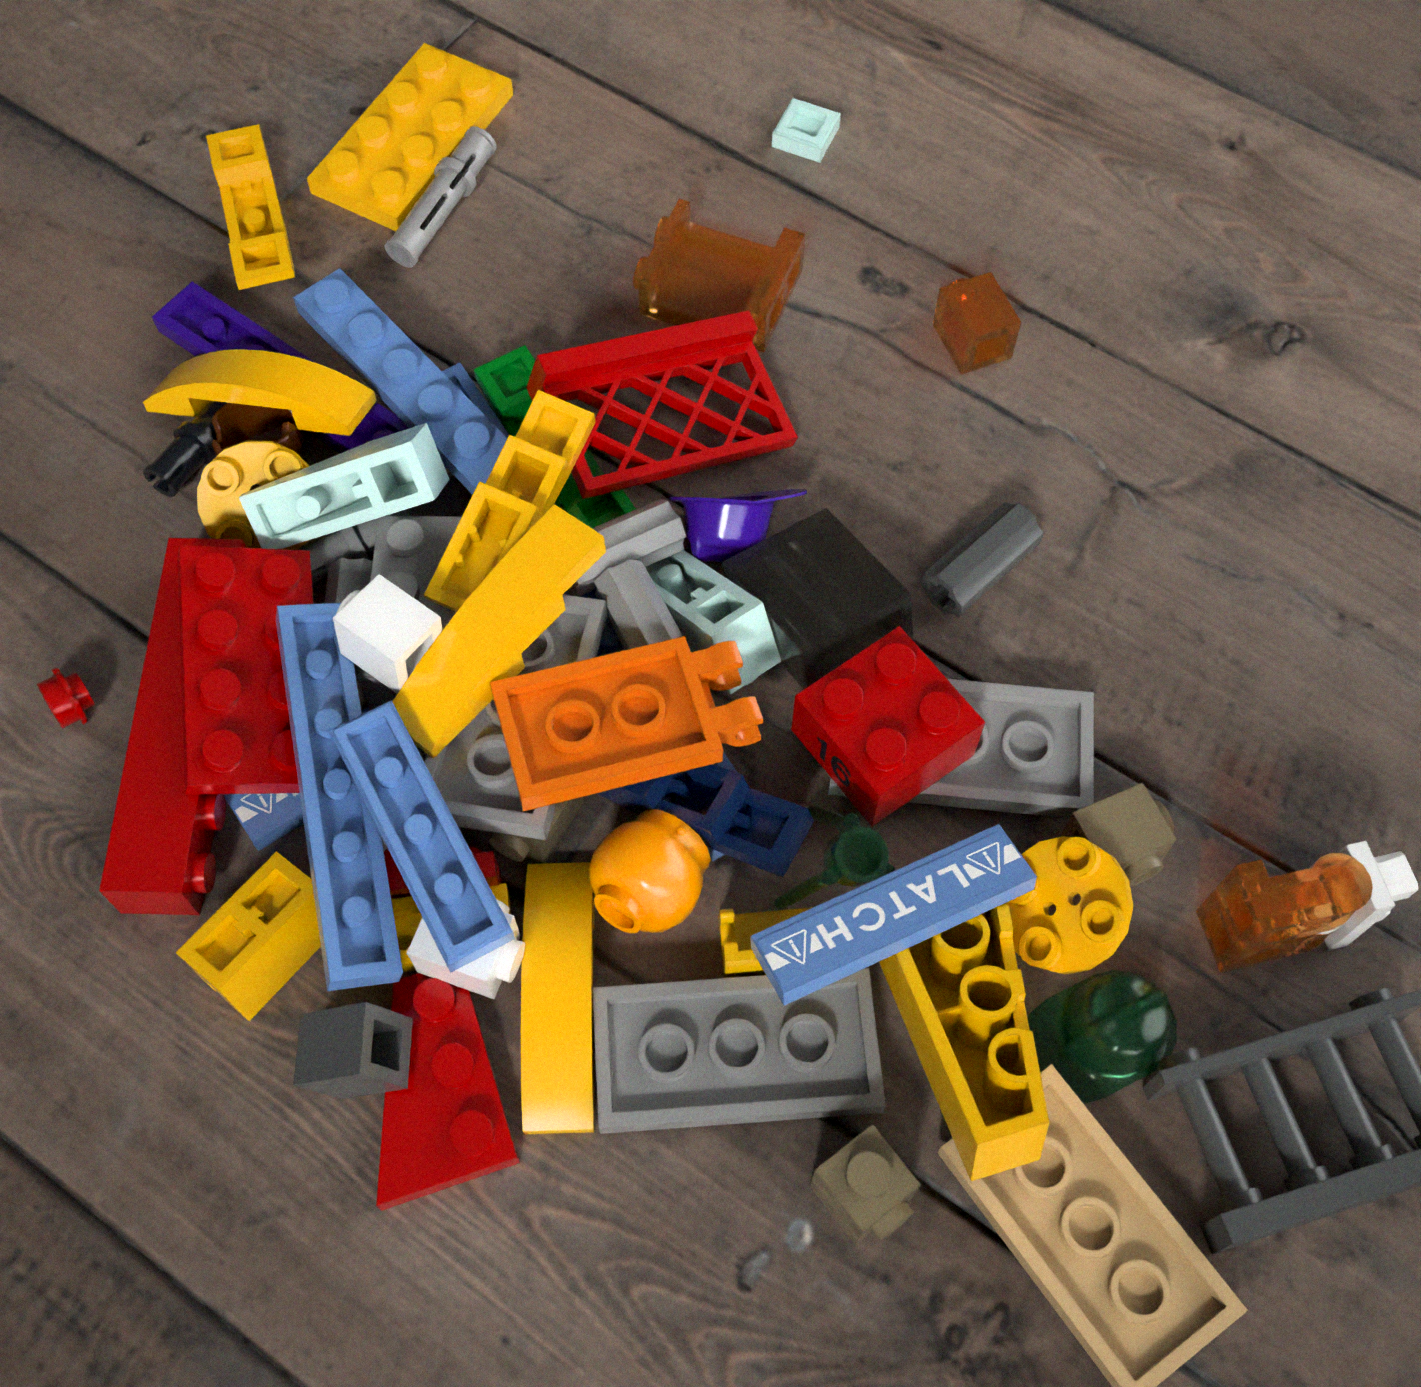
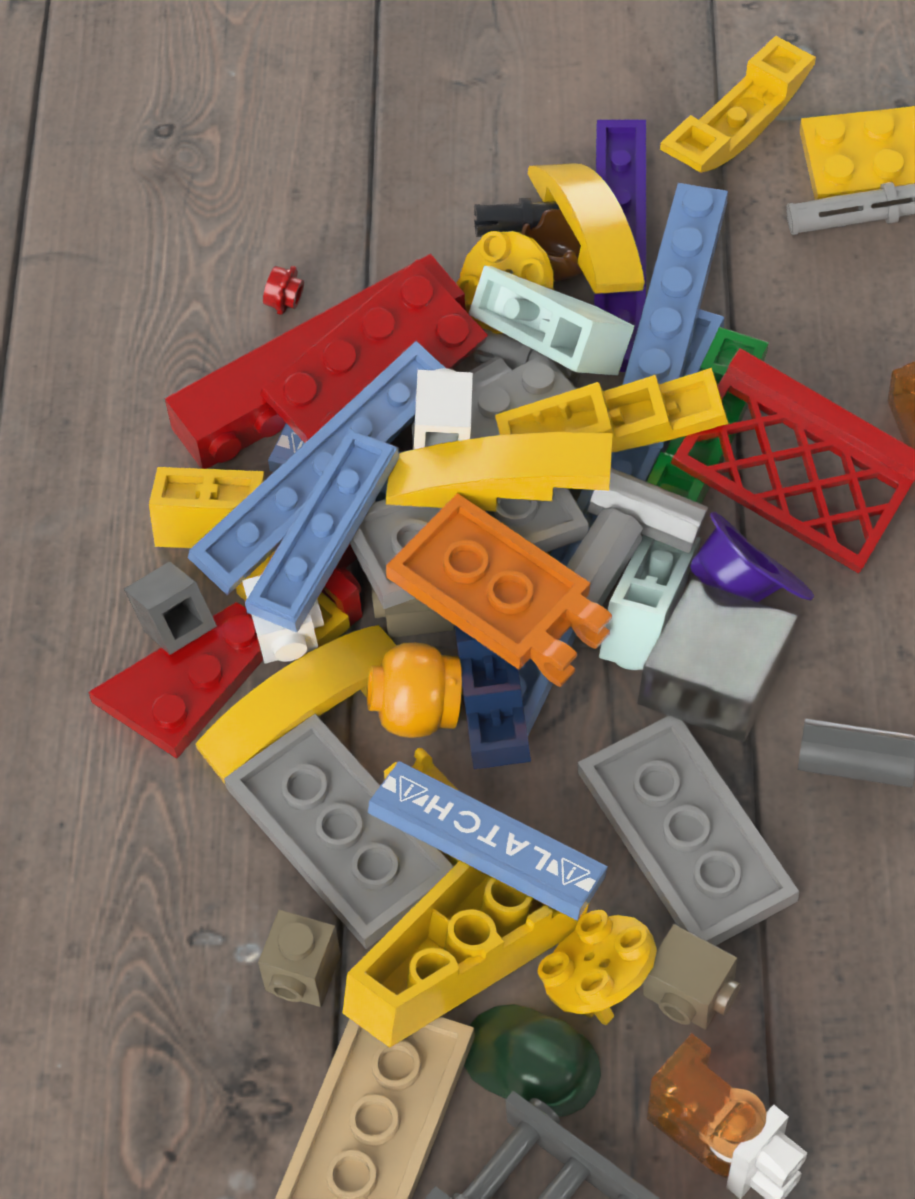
camera: 60 degrees right, 5 degrees down
(849, 858) = (513, 790): clear green plant -> none
(886, 725) = (638, 759): red brick -> none

